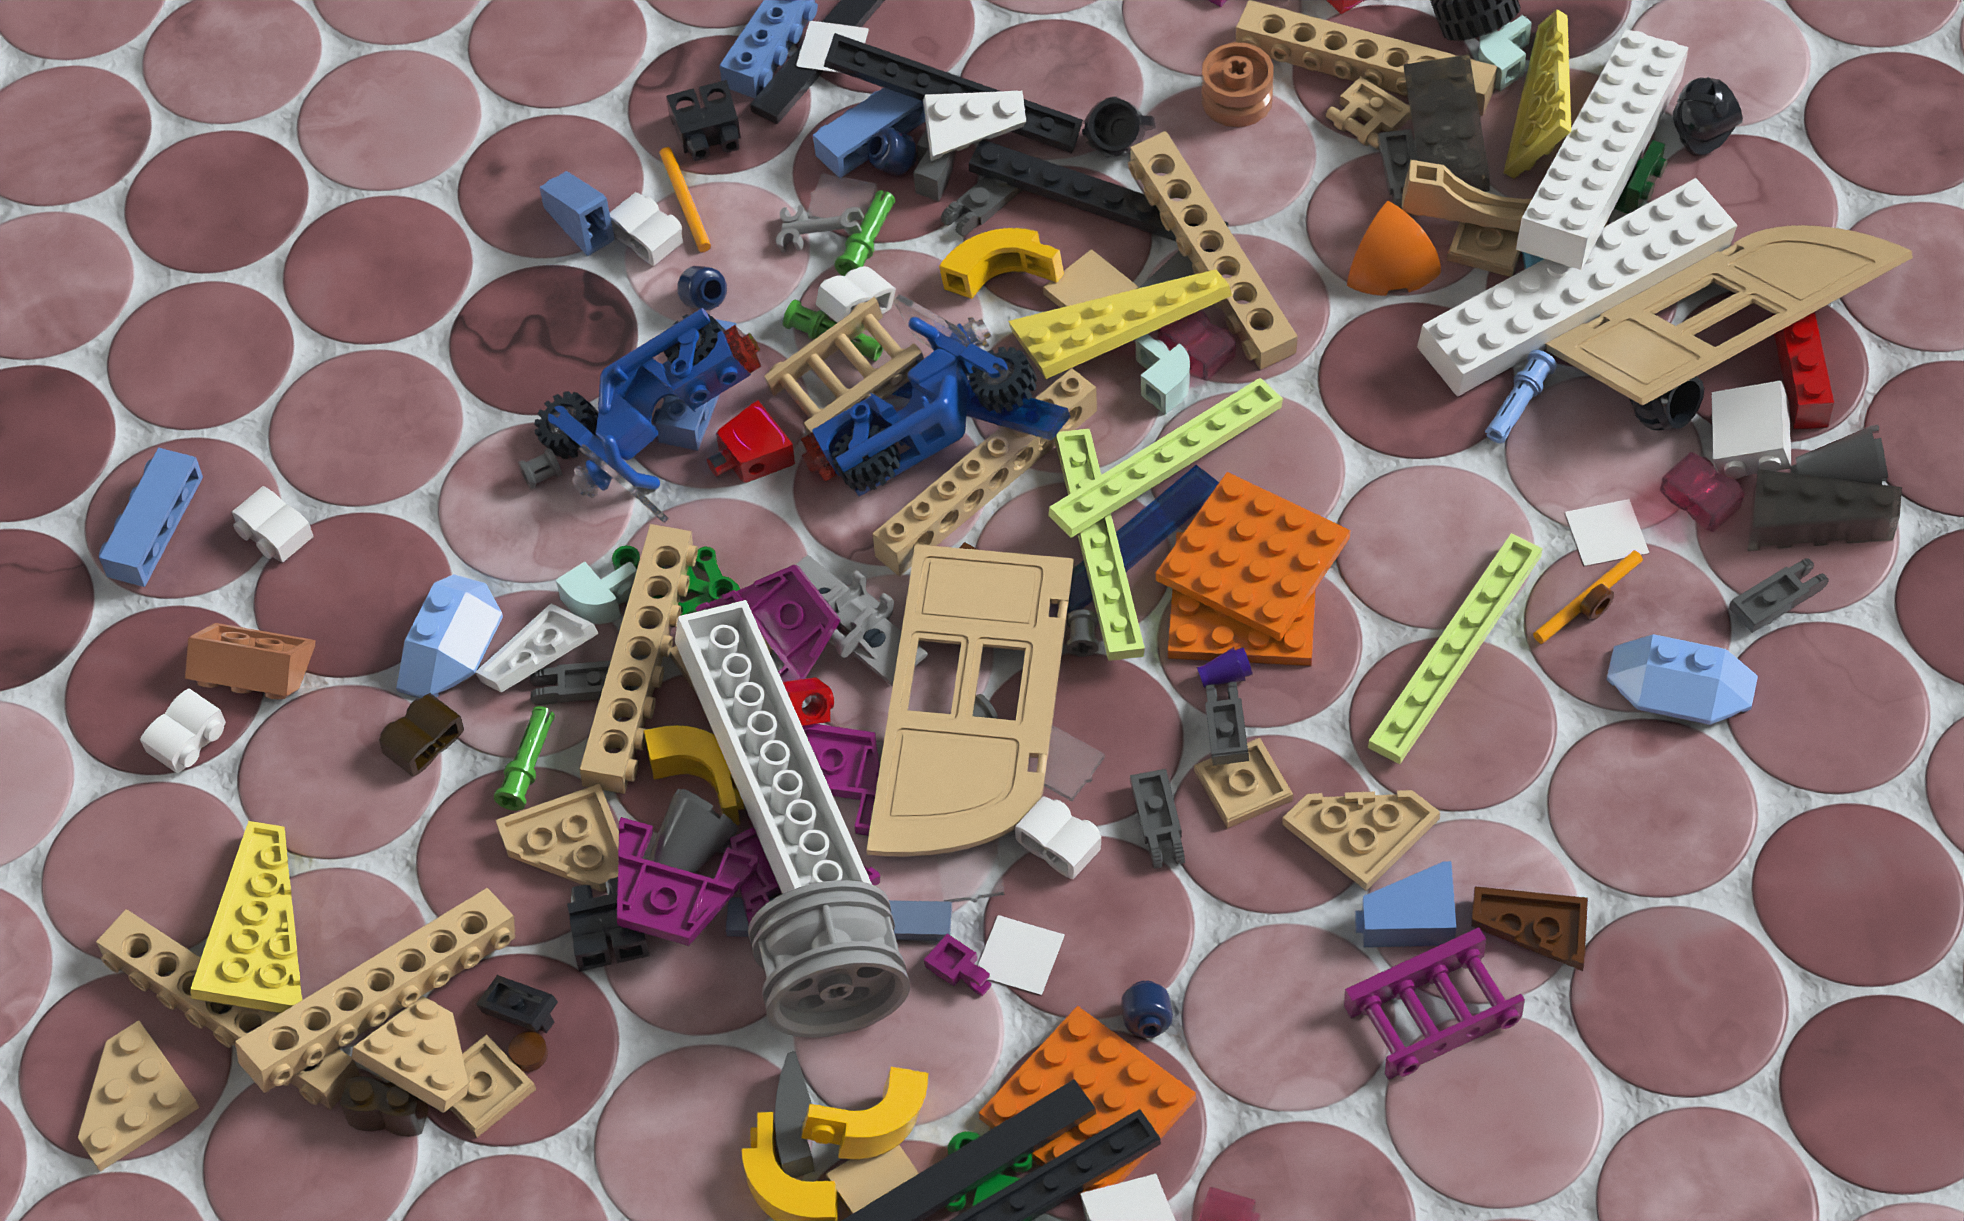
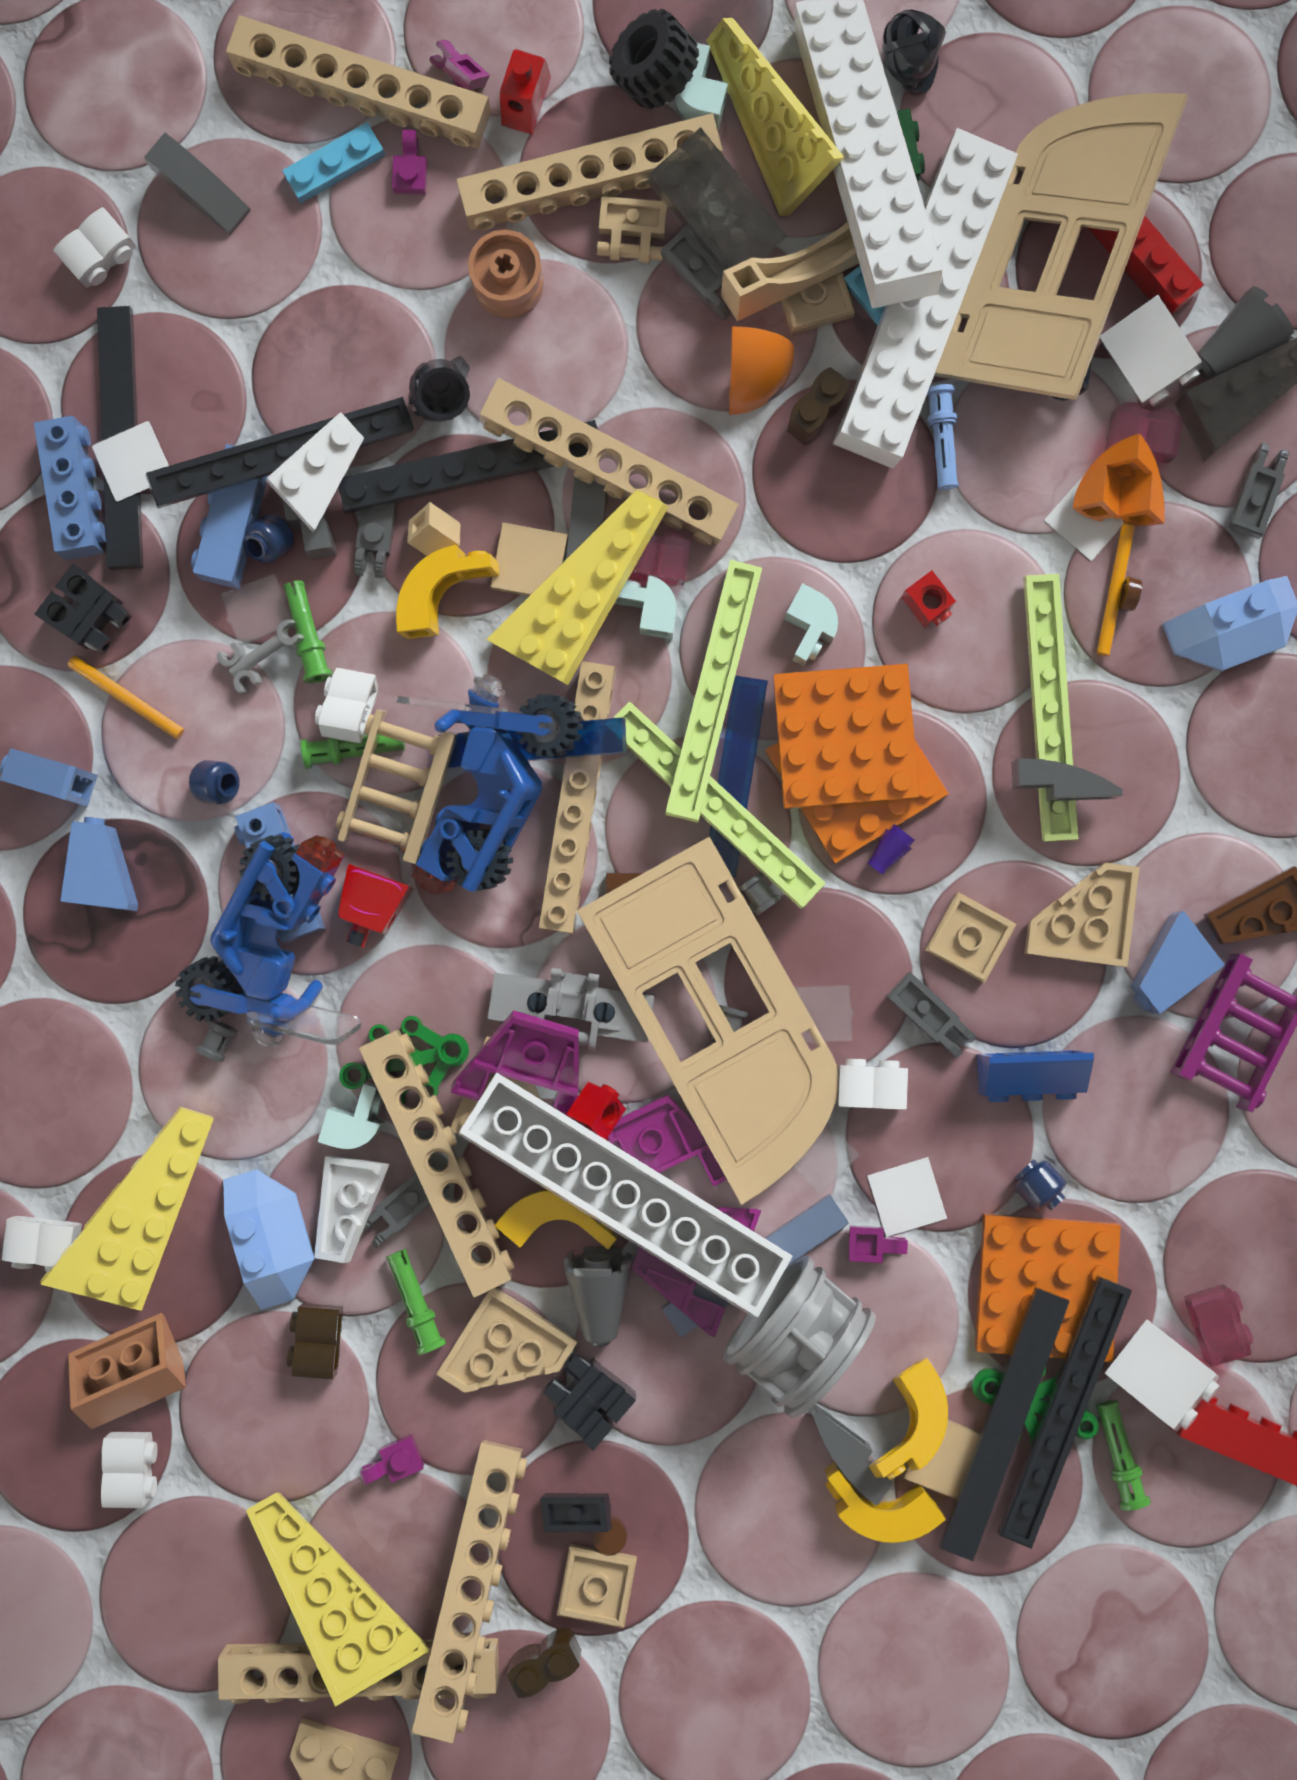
camera: 35 degrees left, 30 degrees up
(347, 557) = (128, 1233): none -> light yellow wing
(402, 874) = (397, 1459): none -> magenta plate
(418, 1054) = (542, 1613): tan plate -> none
(555, 295) = (97, 868): none -> medium blue slope
(645, 228) = (118, 753): white brick -> none
(669, 899) = (629, 1362): magenta wing -> none
(1032, 217) = (433, 530): none -> tan panel
(1212, 907) = (1034, 1074): none -> blue slope
(1226, 727) = (931, 903): dark grey hinge -> none
(1296, 462) = (815, 615): none -> light aqua brick
(1413, 492) = (929, 585): none -> red brick
(1414, 308) = (820, 404): none -> dark brown brick
(1417, 694) = (1061, 780): none -> dark grey slope
(1651, 516) = (1123, 485): none -> orange brick

